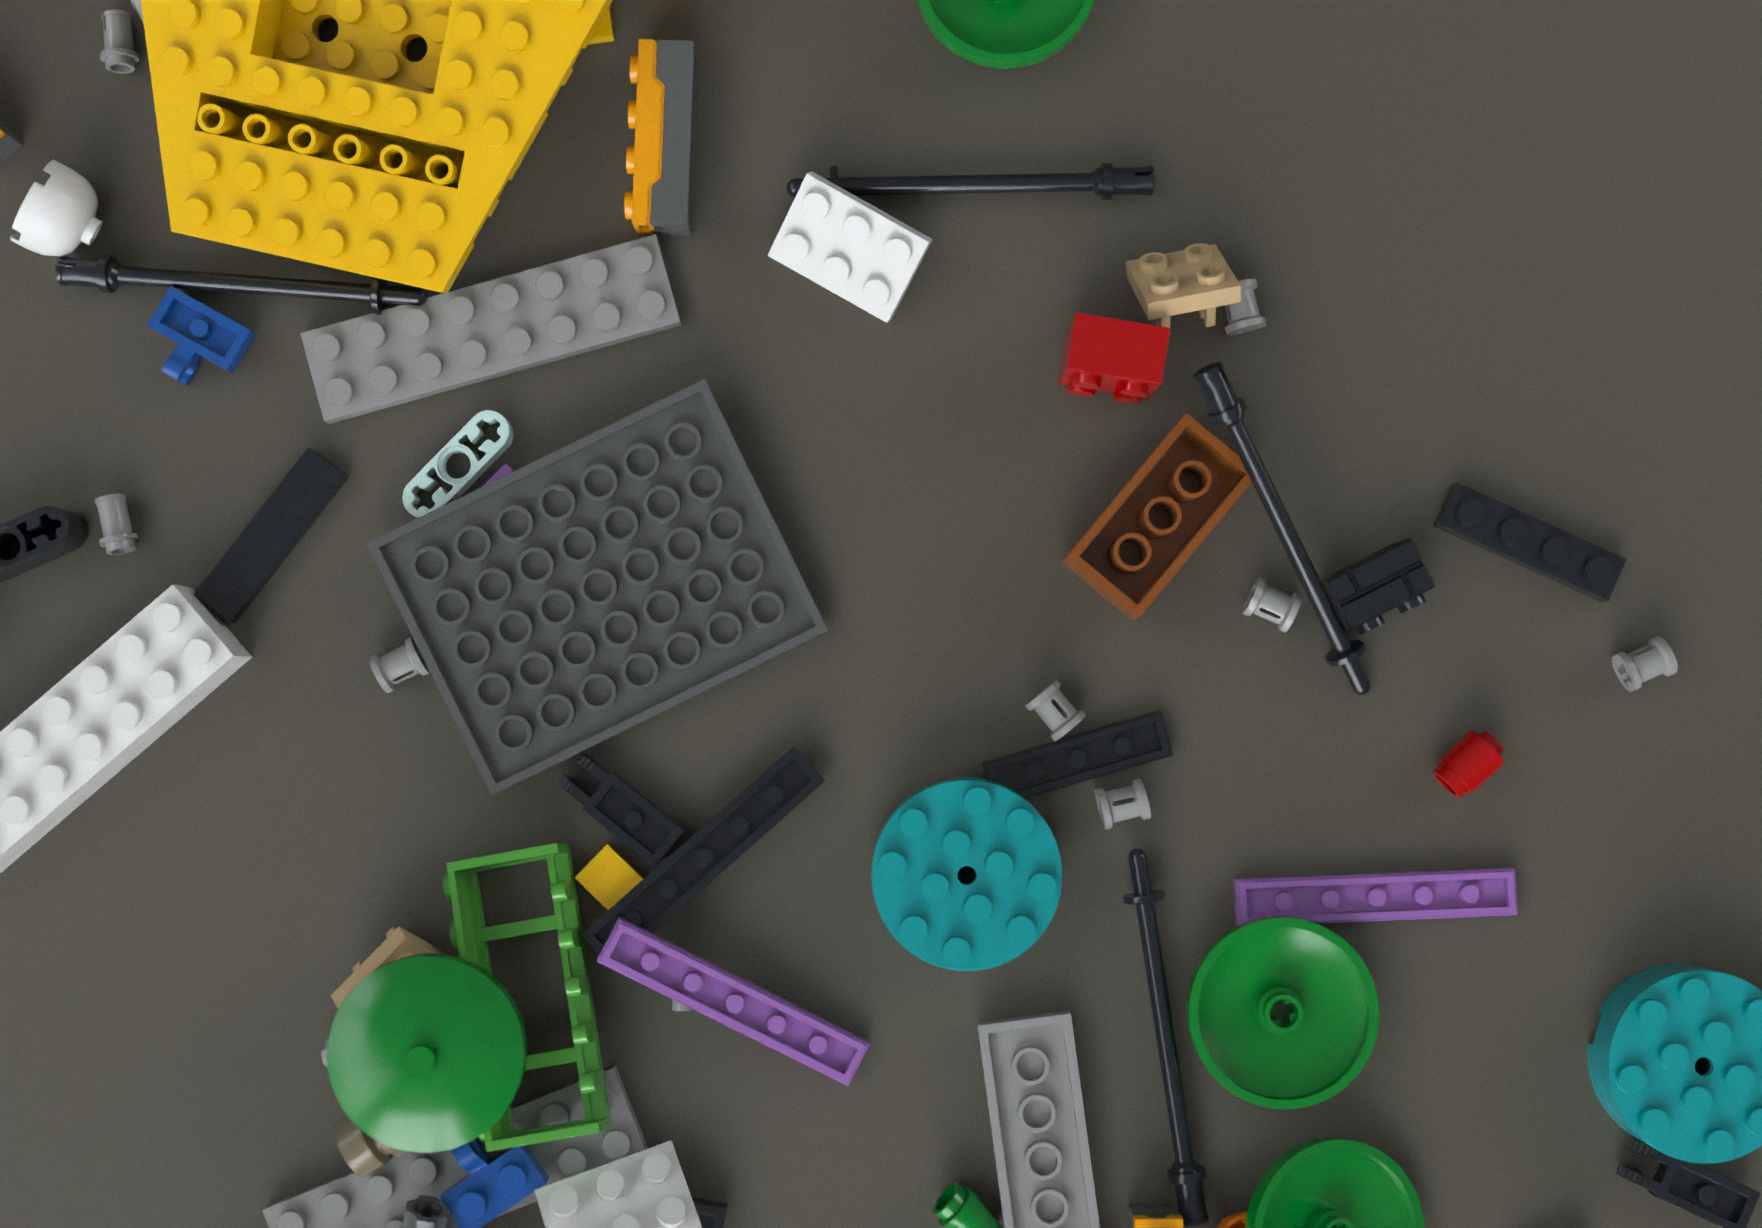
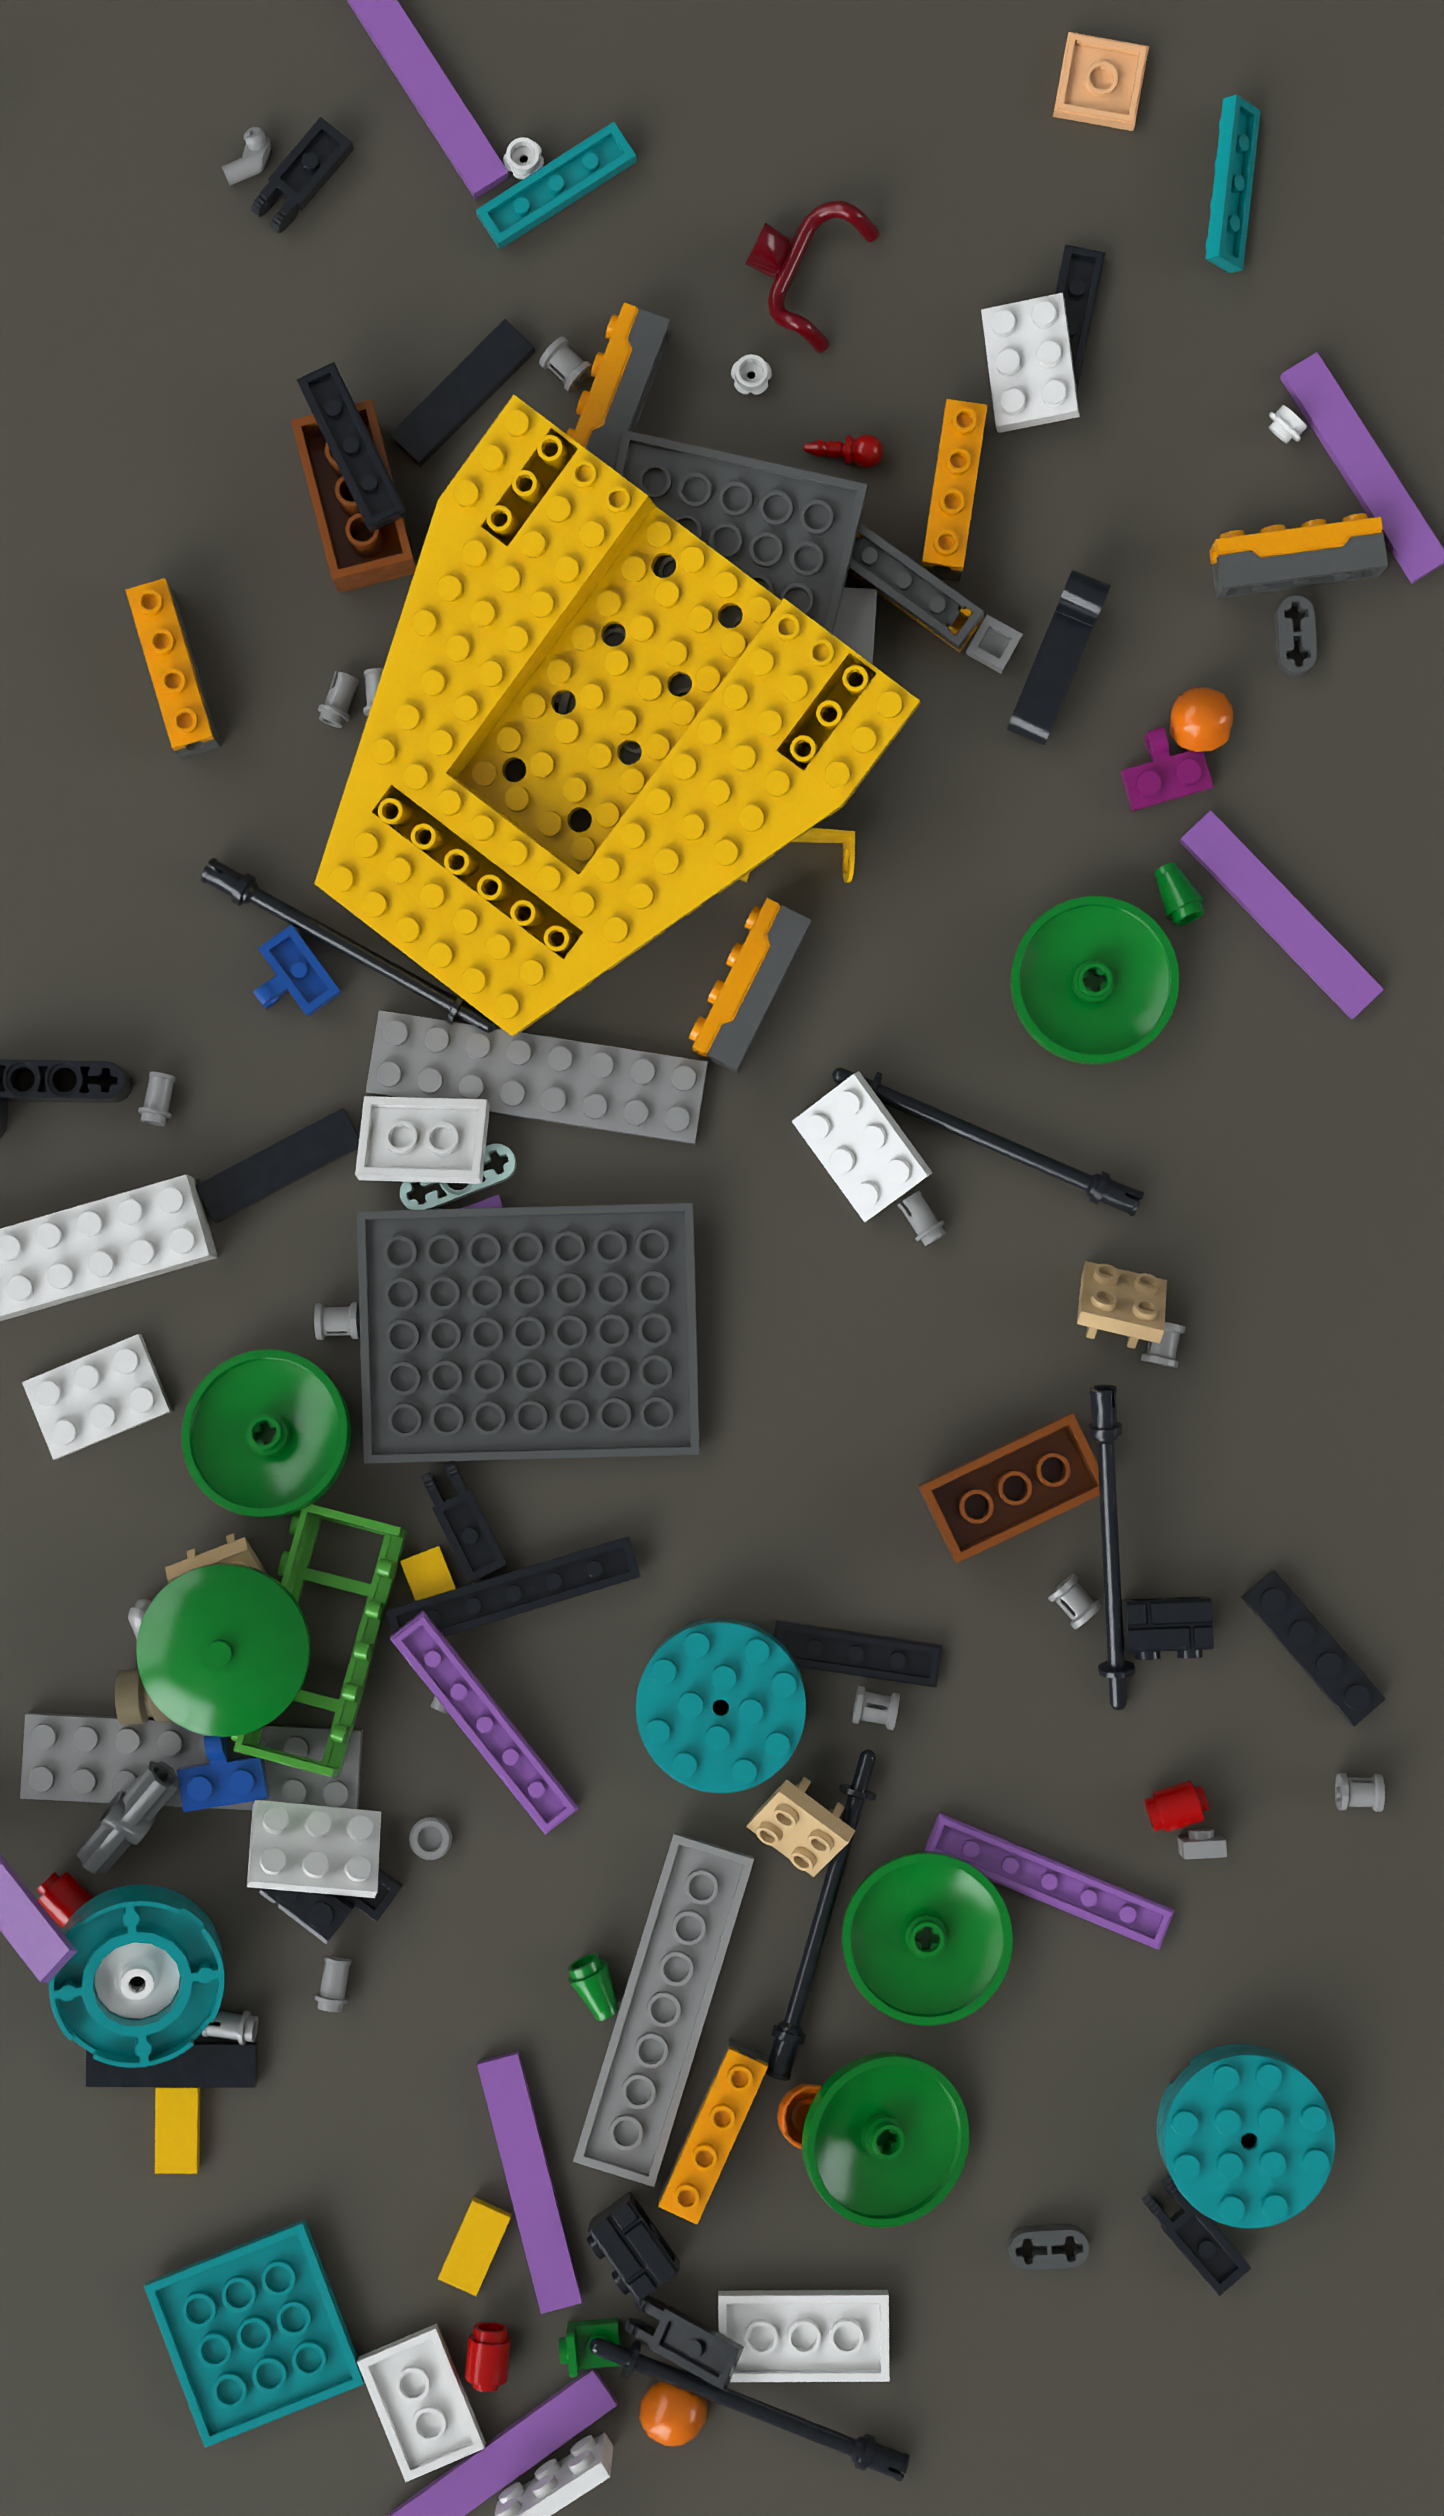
camera: 30 degrees right, 0 degrees up
(57, 214) = (228, 824): white cylinder -> none
(191, 853) = (97, 1396): none -> white plate
(376, 811) = (266, 1434): none -> green dish
(402, 441) = (422, 1139): none -> white plate
(734, 1142) = (431, 1837): none -> light grey tile
(943, 293) = (922, 1219): none -> light grey pin
(1055, 710) = (855, 1606): light grey bush -> none
(1104, 958) = (801, 1827): none -> tan plate
(1113, 358) = (1035, 1339): red brick -> none
(1512, 789) = (1202, 1844): none -> light grey plate

